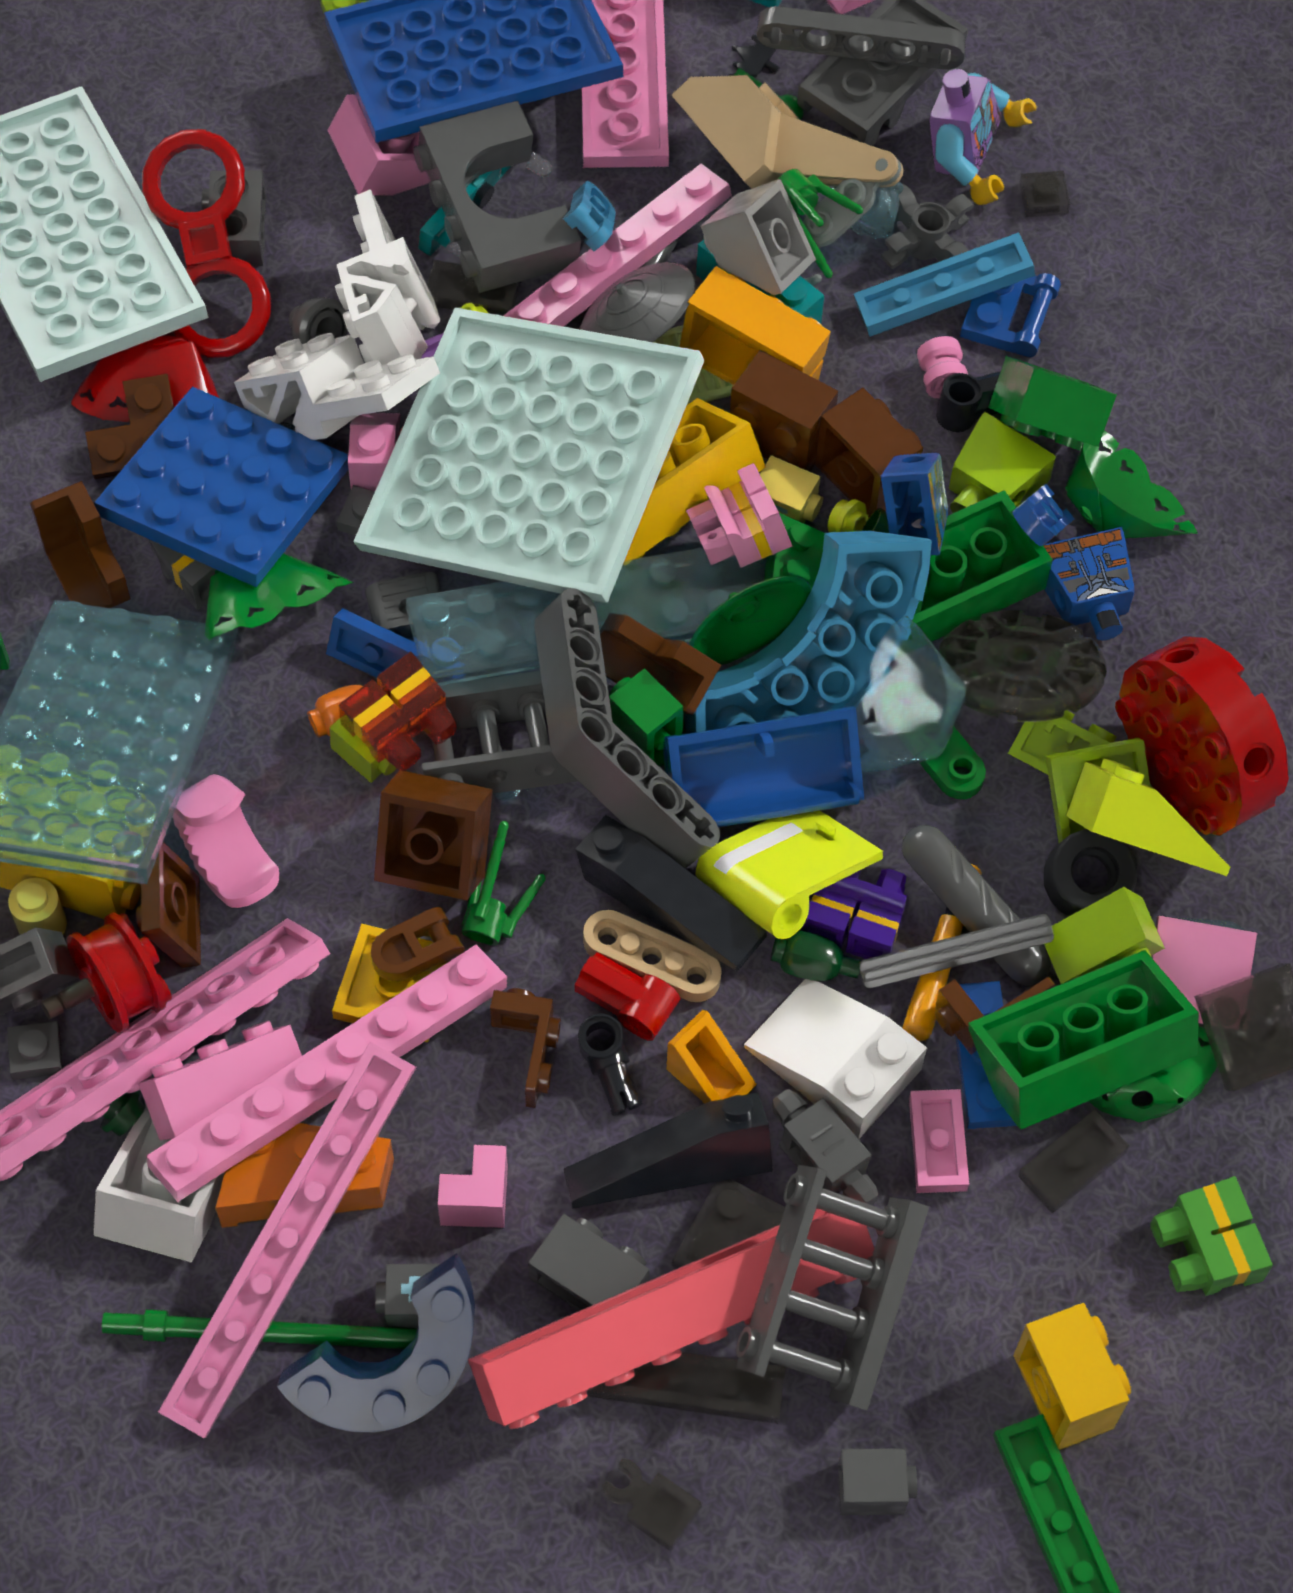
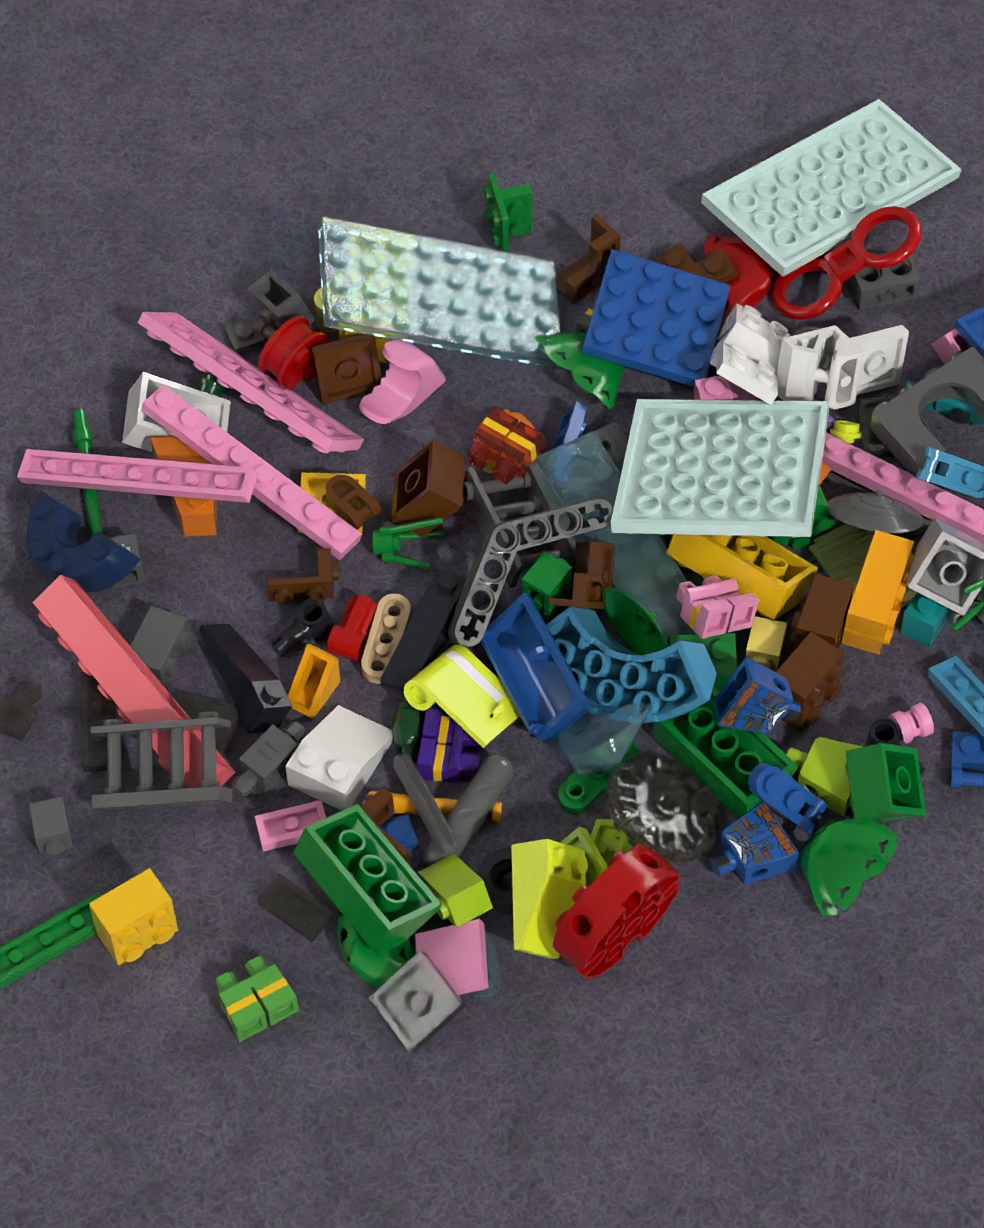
camera: 80 degrees right, 5 degrees down
(190, 1092) = (218, 402): bright pink brick -> none
(478, 1197) = (199, 578): bright pink piece -> none

